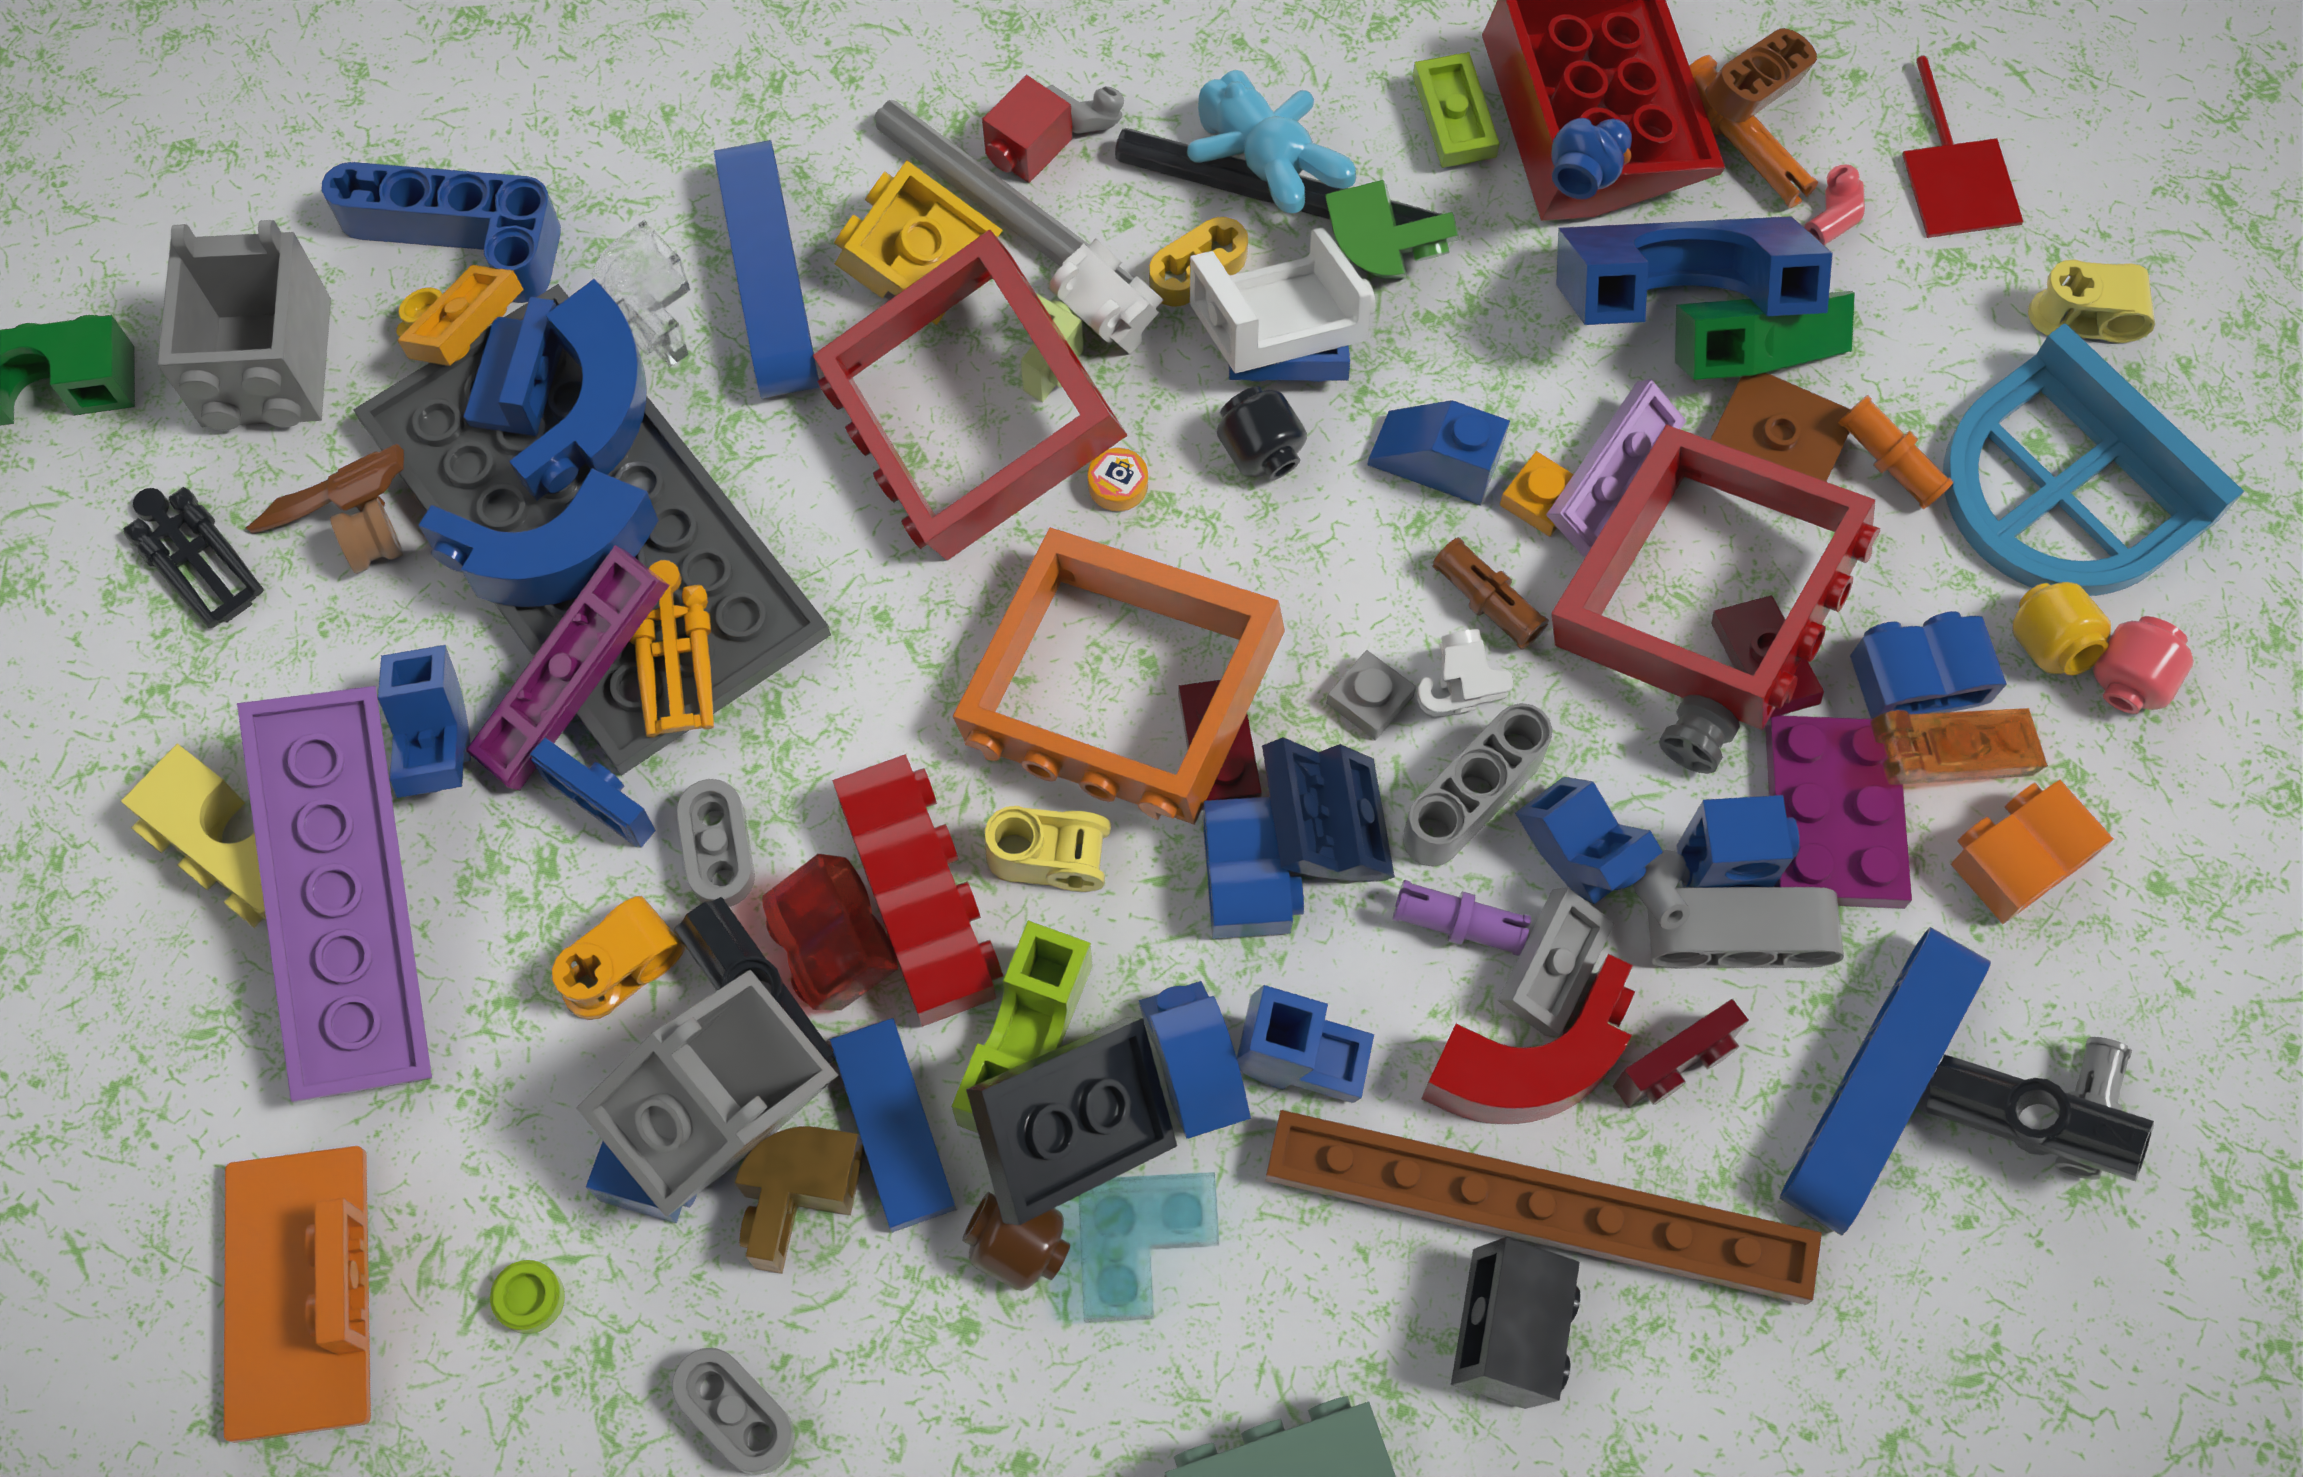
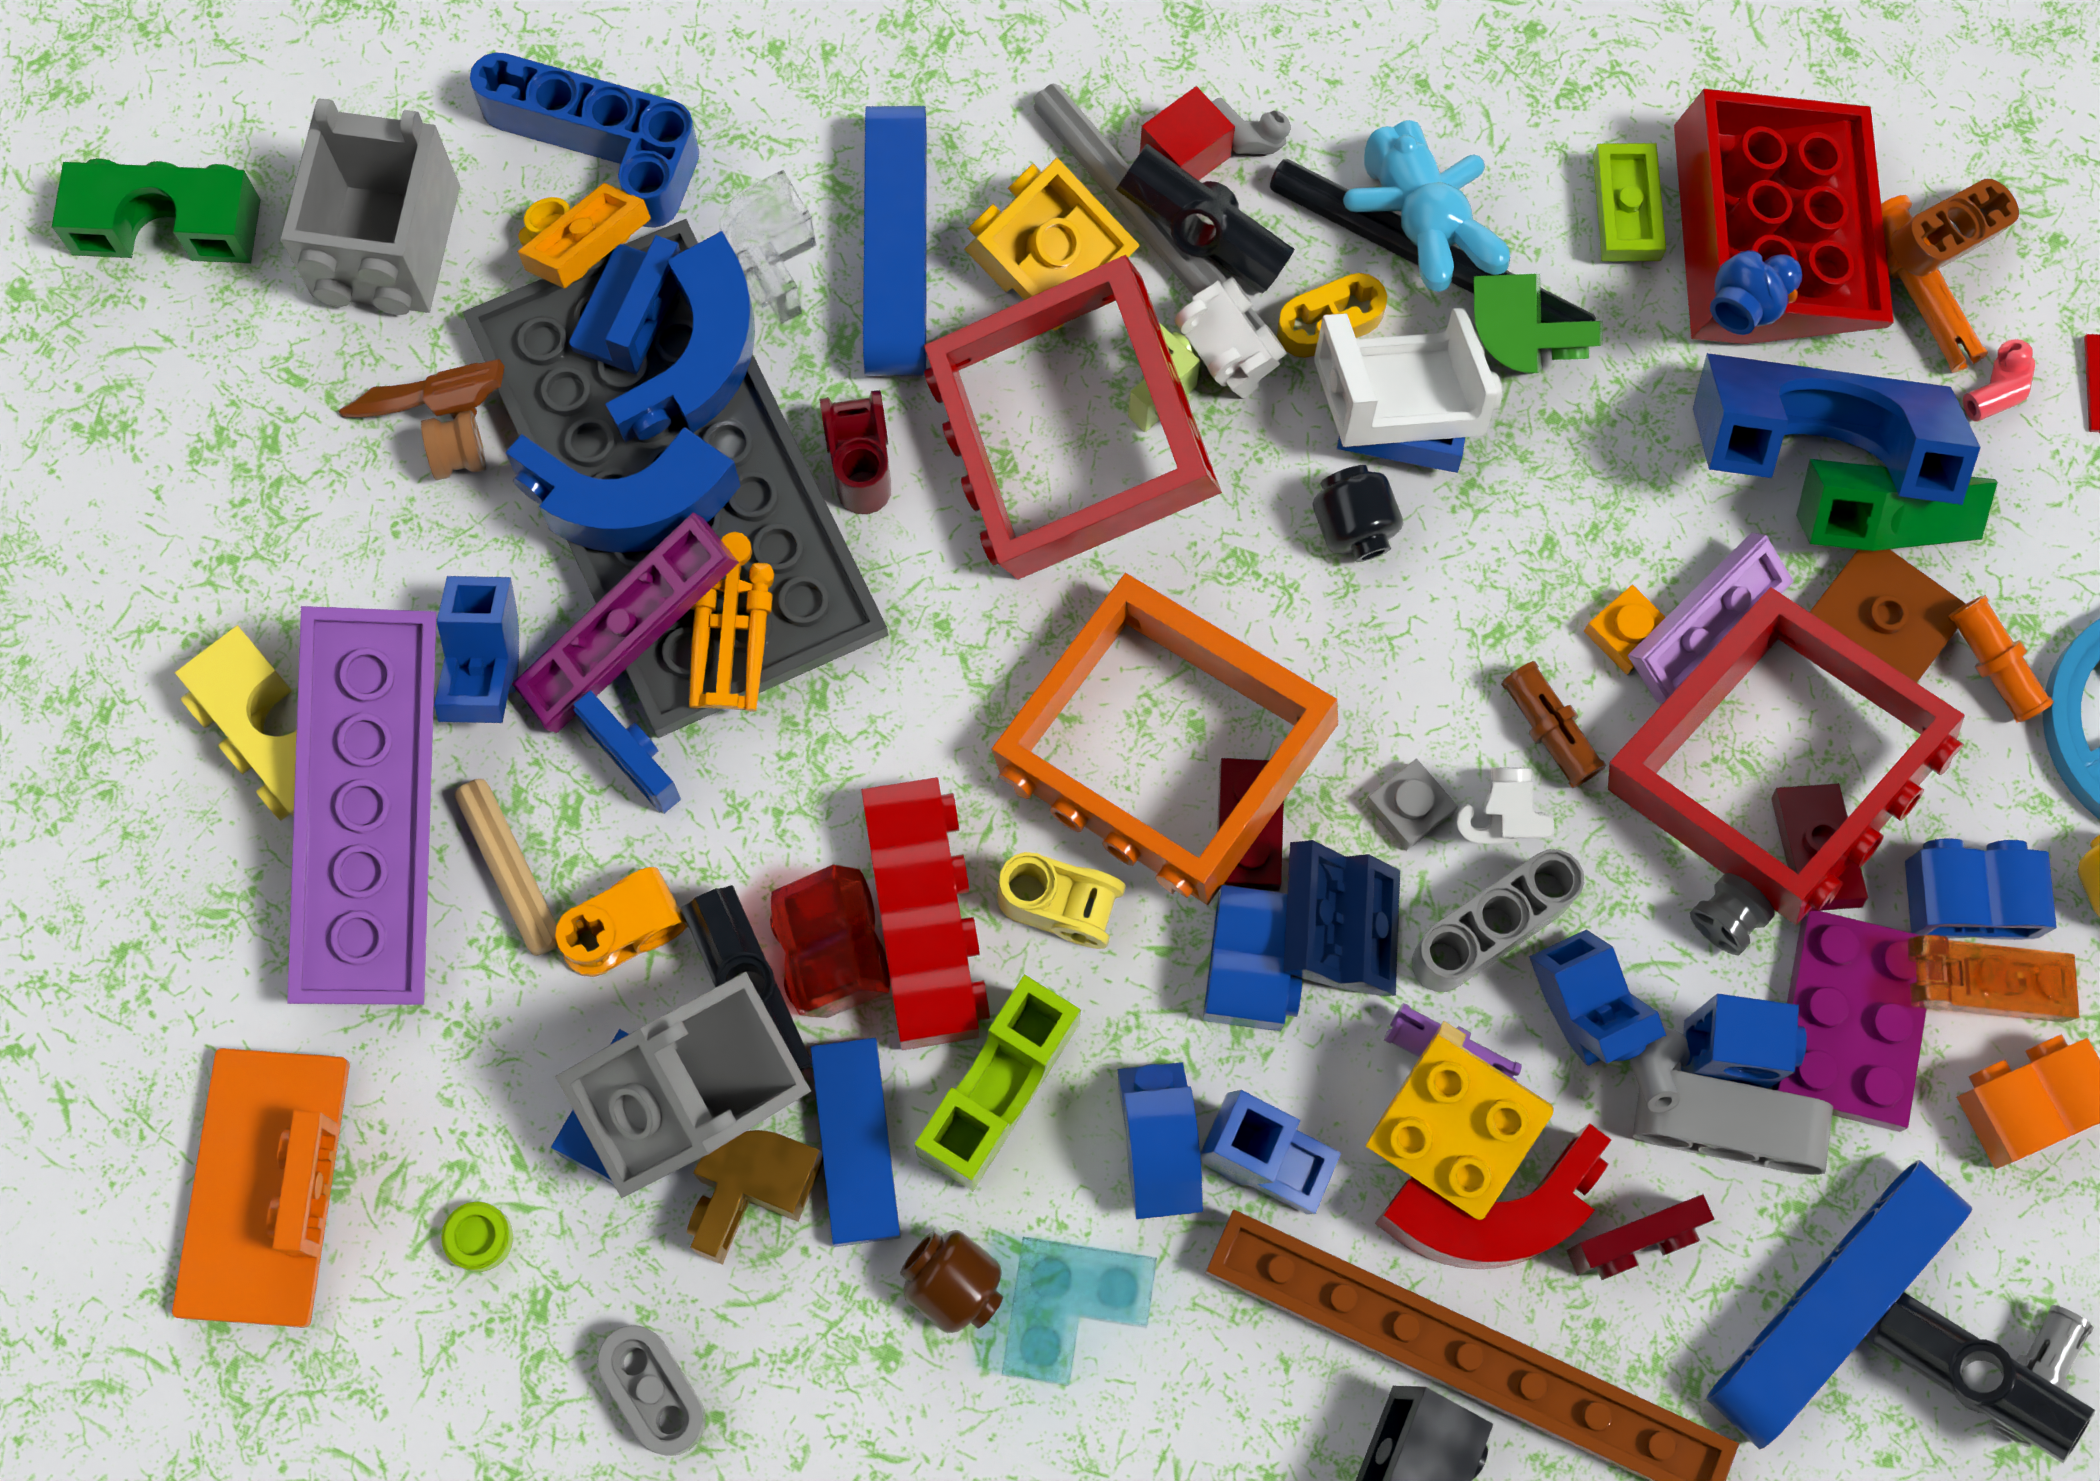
camera: 10 degrees right, 5 degrees up
(153, 506) = (252, 371): black piece -> none
(493, 927) = (508, 866): none -> tan axle
(717, 846) = (736, 829): light grey plate -> none
(767, 461) = (858, 442): none -> dark red piece
(1025, 178) = (1176, 200): none -> black piece
(1071, 1119) = (1028, 1181): black plate -> none
(1118, 479) = (1204, 531): tile -> none
(1442, 447) = (1536, 562): blue slope -> none
(1484, 978) = (1459, 1124): none -> yellow bracket
(1556, 962) = (1571, 1091): light grey plate -> none

